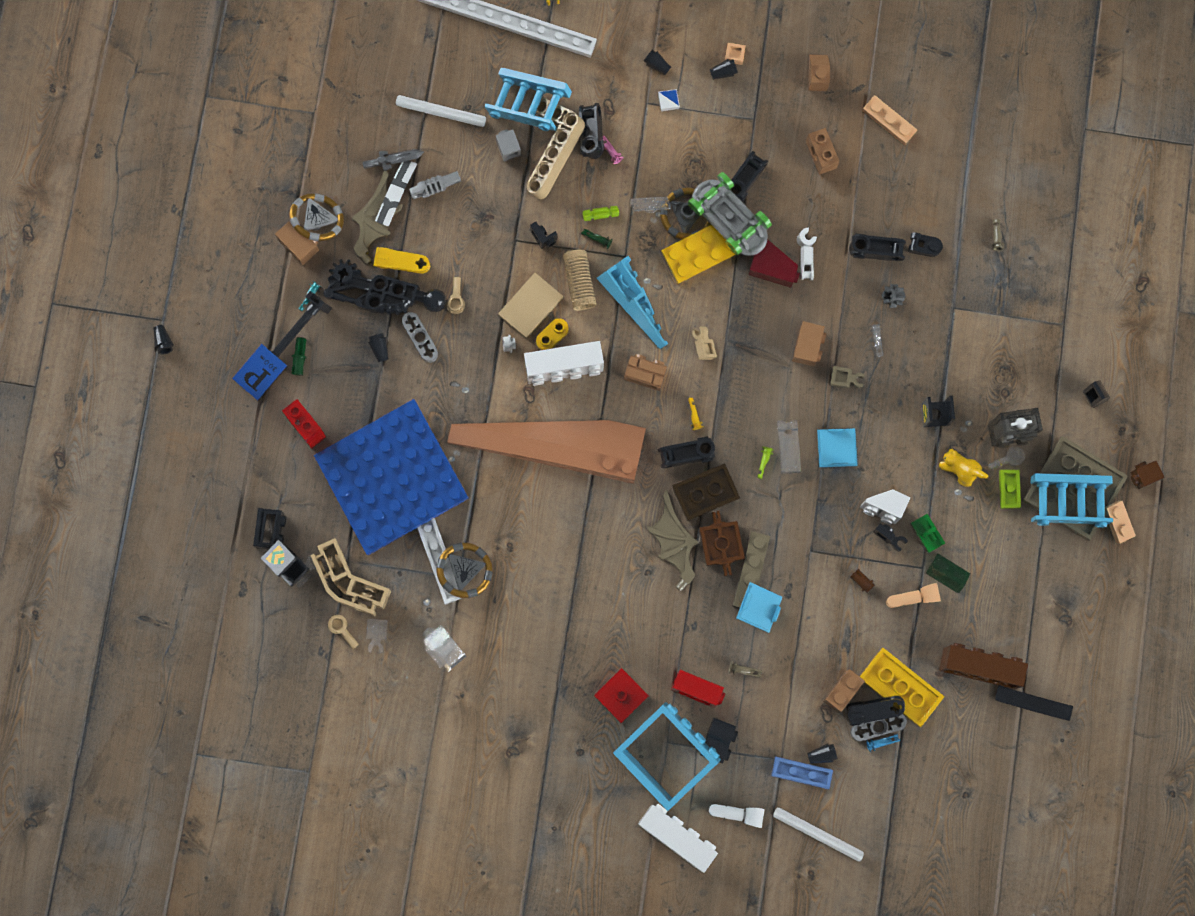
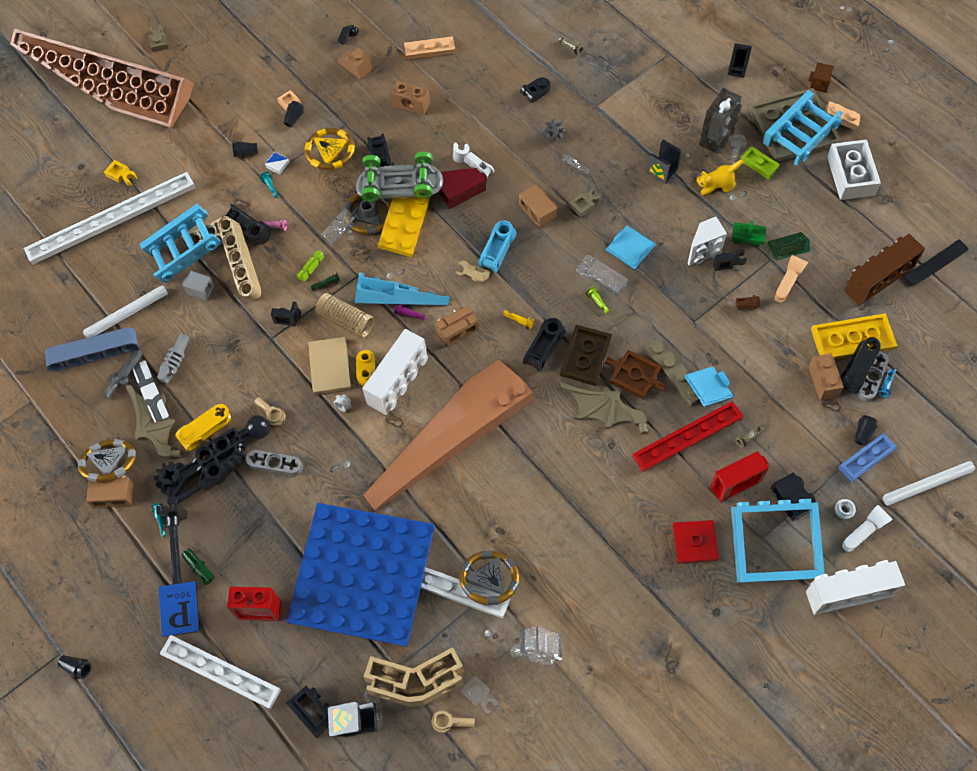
camera: 40 degrees left, 15 degrees down
(242, 442) = (220, 672): none -> white plate
(379, 347) = (251, 498): black cone -> none
(389, 117) = (91, 349): none -> sand blue beam
(625, 322) = (405, 311): none -> magenta piece
(647, 104) = (266, 177): none -> teal piece
(702, 624) = (687, 436): none -> red plate
(715, 131) = (329, 148): none -> piece
(742, 343) = (497, 245): none -> medium azure piece
(748, 786) = (849, 505): none -> white plate
(844, 37) = (346, 32): none -> black arm
(877, 247) = (510, 116): black piece -> none
(1066, 571) = (853, 169): none -> white brick

